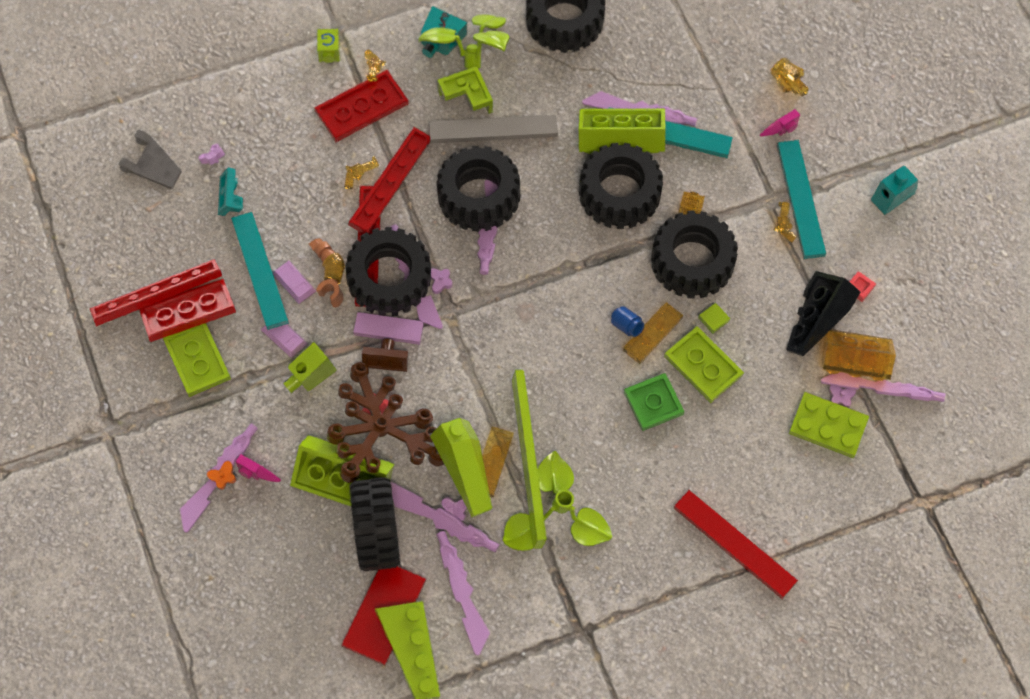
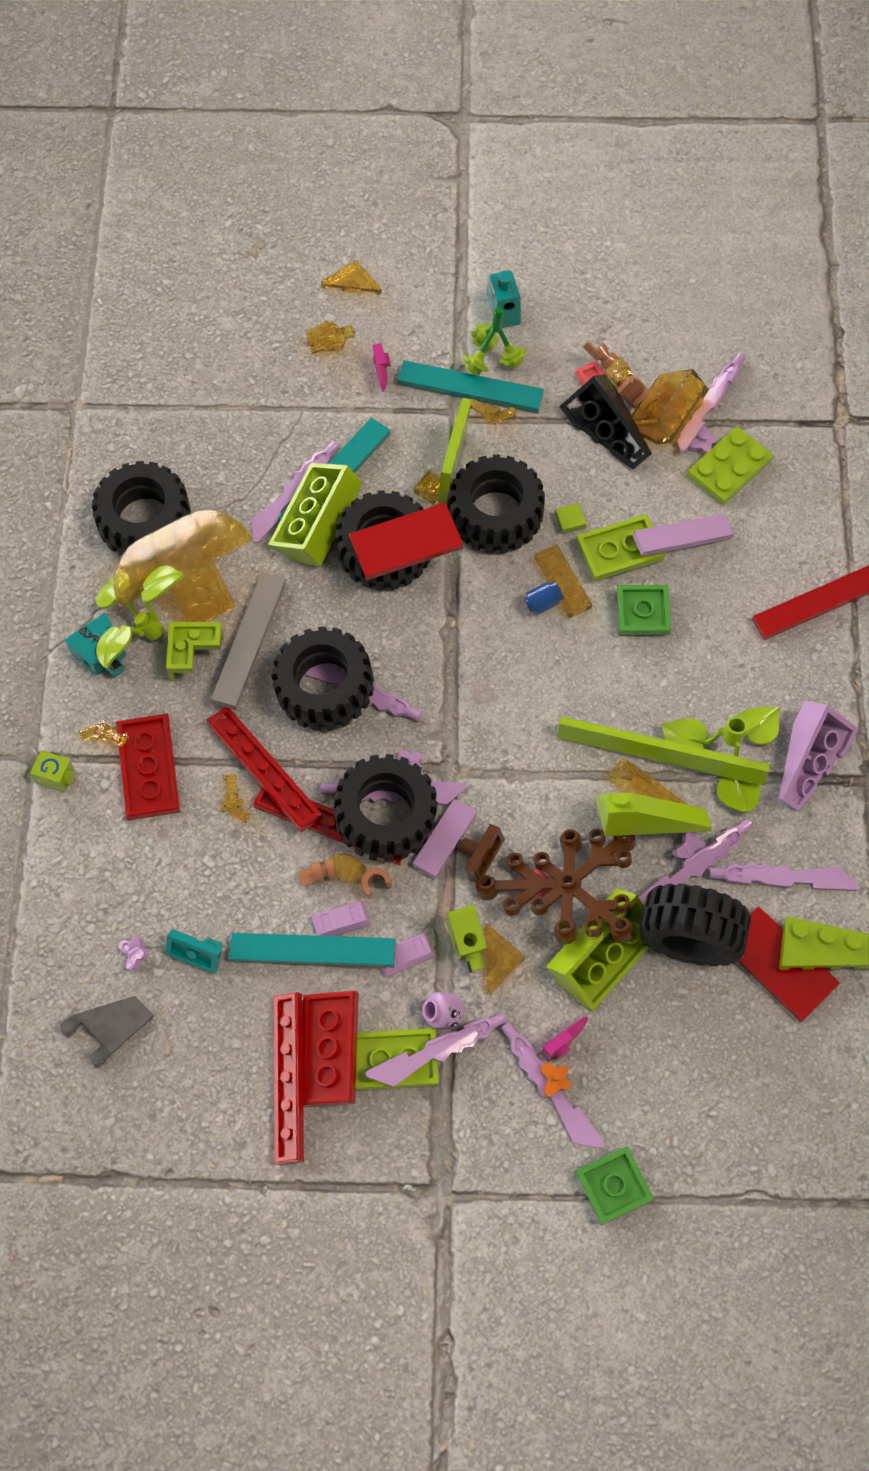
camera: 65 degrees left, 0 degrees up
(154, 547) = (614, 1185): none -> bright green plate
(212, 382) = (402, 1066): none -> lavender sword
(245, 376) = (443, 1010): none -> lavender head
(306, 403) = (500, 959): none -> clear yellow tile
(529, 53) = (189, 548): none -> clear yellow plate
(586, 577) = (815, 744): none -> lavender wedge
(616, 195) = (406, 541): none -> red tile
(726, 202) = (454, 450): none -> lime tile
(737, 407) = (683, 534): none -> lavender tile
(852, 191) = (485, 338): none -> lime plant
(857, 74) = (352, 279): none -> clear yellow tile
(871, 305) = (619, 373): none -> nougat piece

